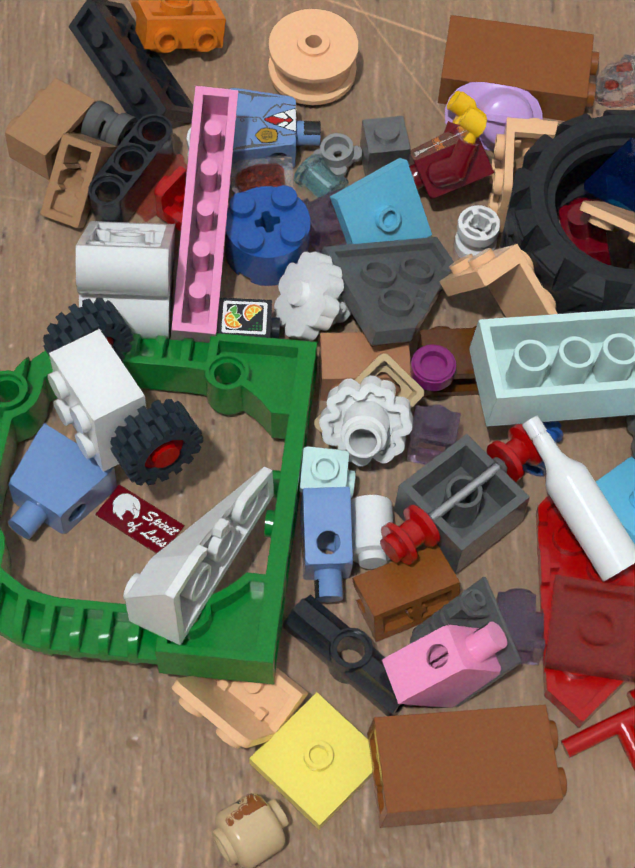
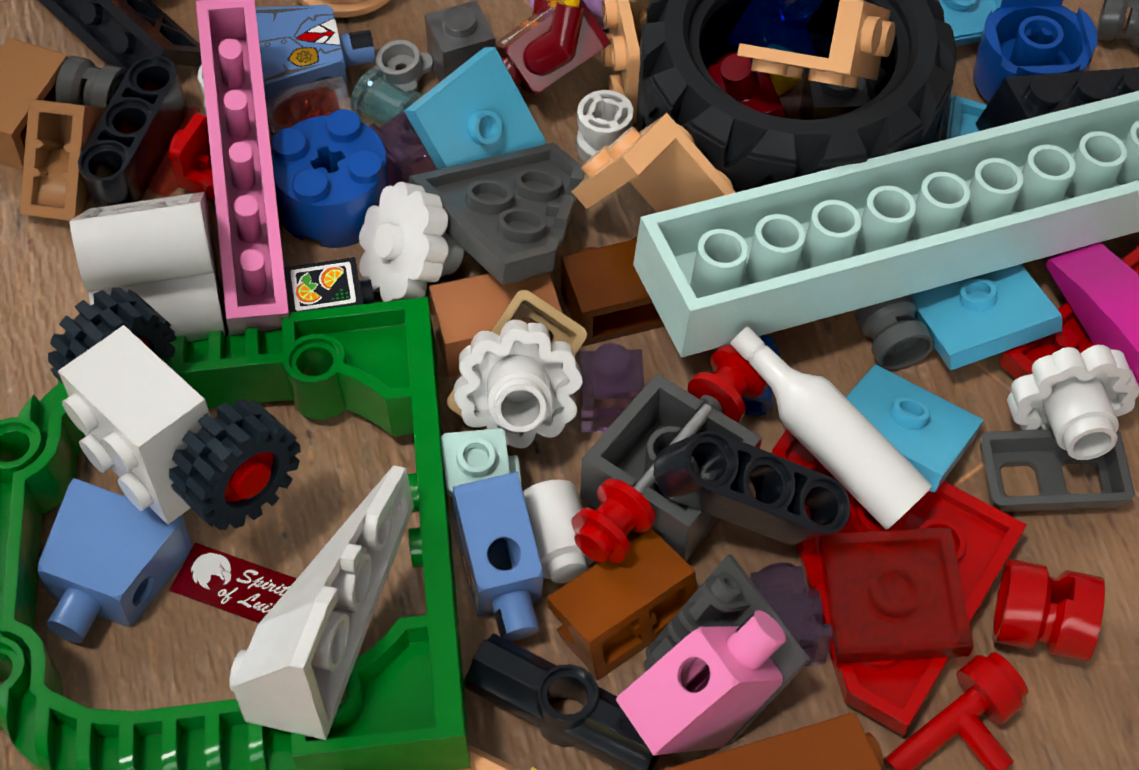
camera: 10 degrees left, 5 degrees down
(433, 367) = (590, 298): magenta tile -> none
(531, 538) = (725, 492): none -> black beam

